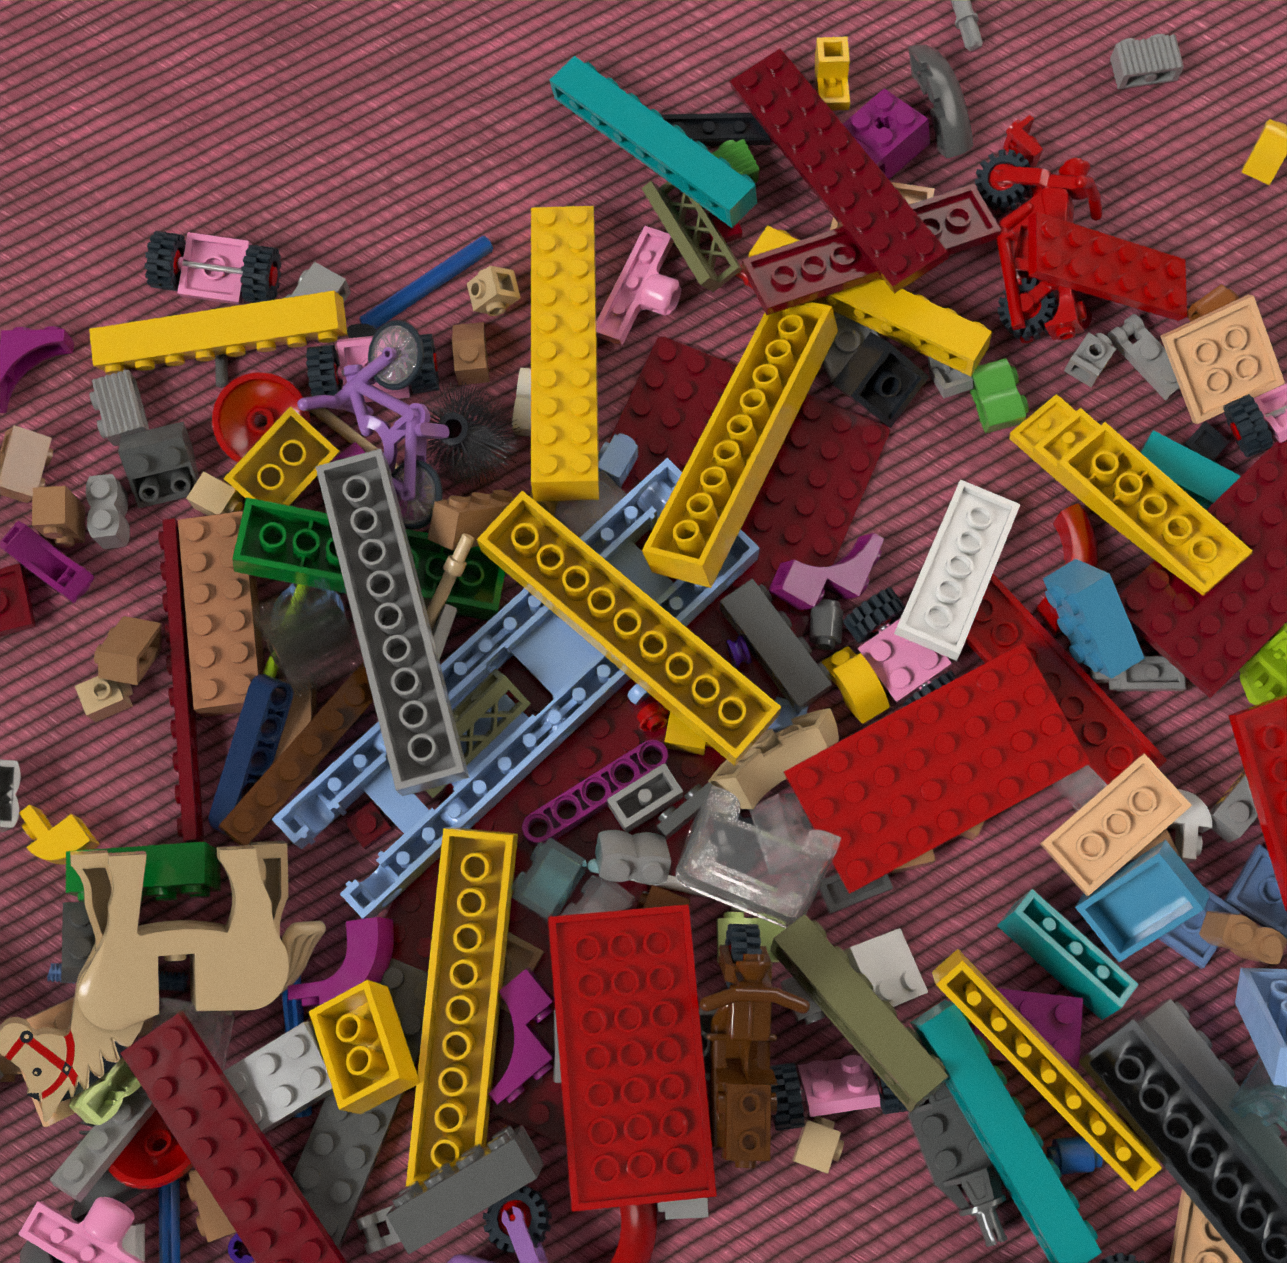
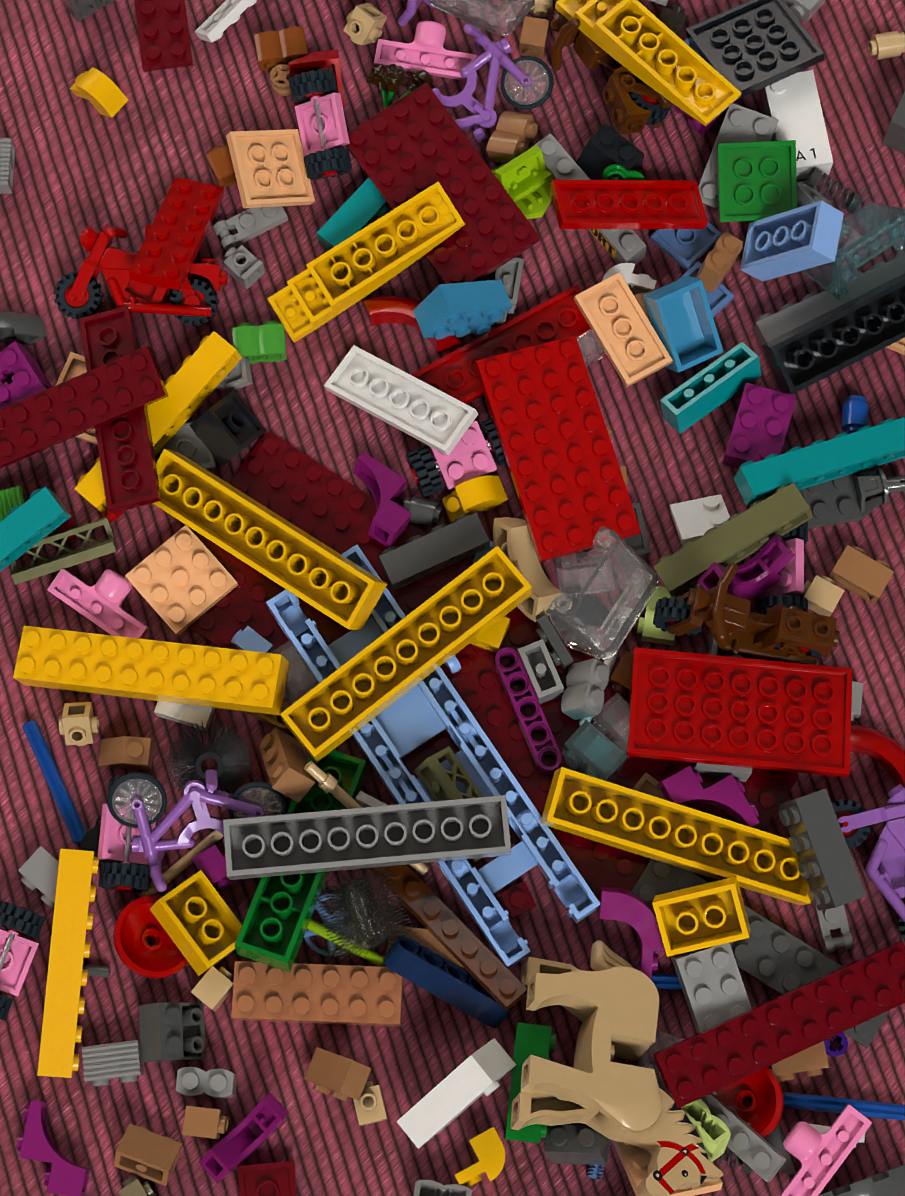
camera: 80 degrees left, 0 degrees up
(114, 786) = (455, 1093): none -> white brick
(180, 695) = (354, 1037): dark red plate -> none
(652, 717) = (474, 656): red plate -> none
(682, 367) = (181, 580): none -> light nougat plate
(738, 651) = (433, 580): dark purple bush -> none
(815, 1043) = (756, 574): none -> magenta arch
(858, 1195) = (861, 574): none -> medium nougat piece
(1021, 142) = (46, 277): red bracket -> none
(1046, 1070) = (795, 417): yellow brick -> none
(1207, 442) = (331, 198): black plate -> none

